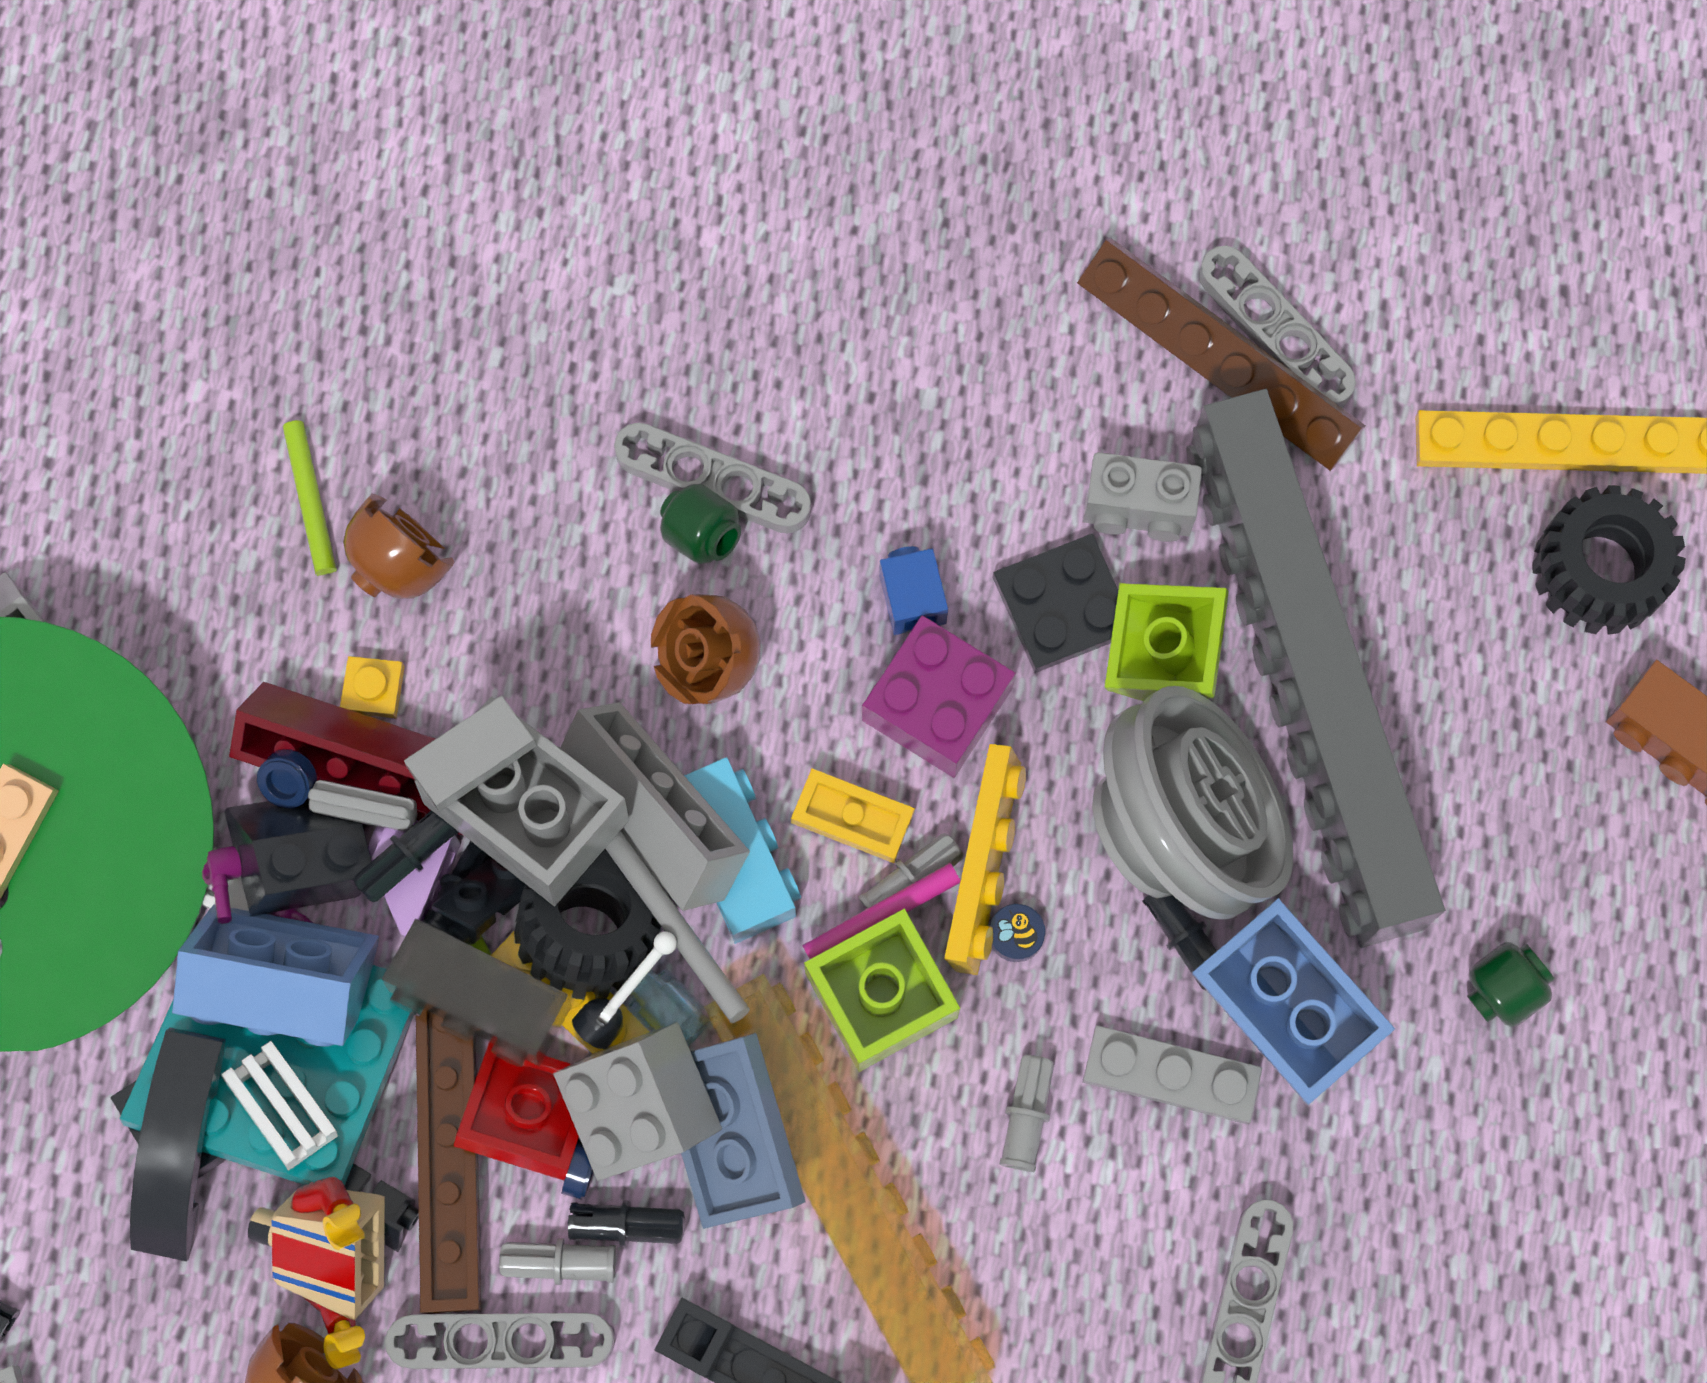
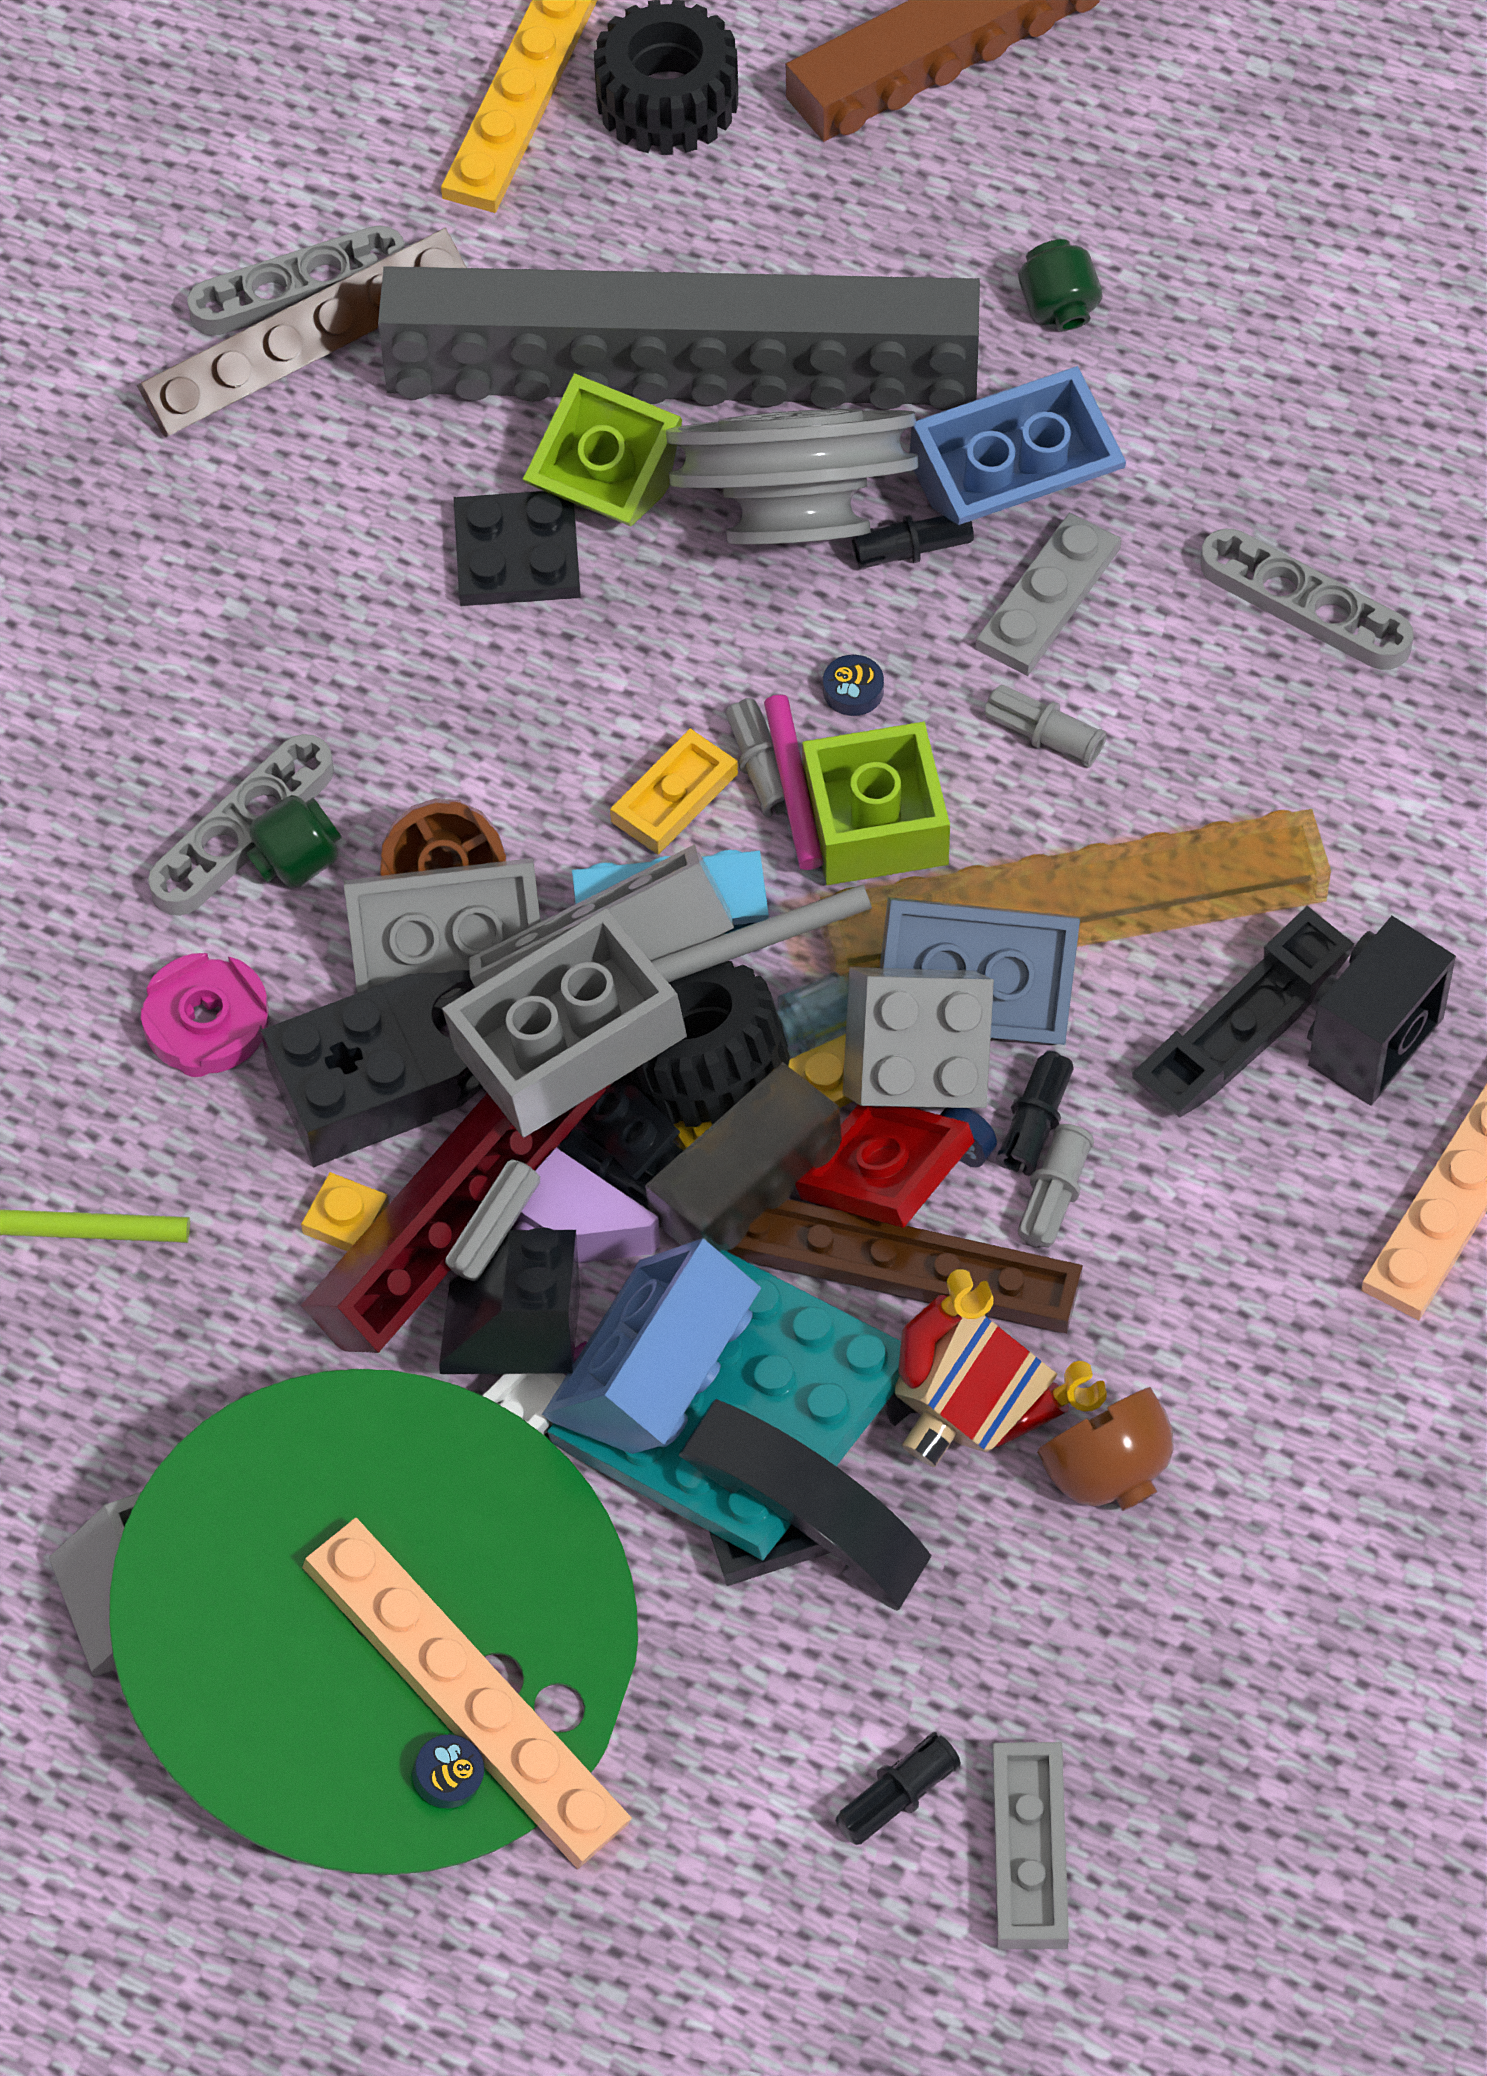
camera: 70 degrees left, 15 degrees down
(222, 866) = (516, 1384): magenta hand -> none
(253, 1068) = (798, 1365): white tile -> none
(286, 778) = (430, 1293): dark blue tile -> none
(389, 552) = (202, 1136): dark orange cylinder -> none
(403, 856) = (566, 1183): black axle -> none
(470, 753) = (503, 1030): light grey tile -> none
(500, 1345) = (1121, 1265): light grey beam -> none
(518, 484) = (212, 1045): none -> dark pink plate
(524, 666) = (370, 1064): none -> black brick
(601, 1018) = (814, 1052): hinge -> none
(637, 661) = (436, 918): none -> light grey plate
(912, 588) = (450, 667): blue brick -> none
(938, 696) = (578, 673): magenta brick -> none
(981, 881) = (751, 673): yellow plate -> none
(1142, 496) = (437, 433): light grey bracket -> none

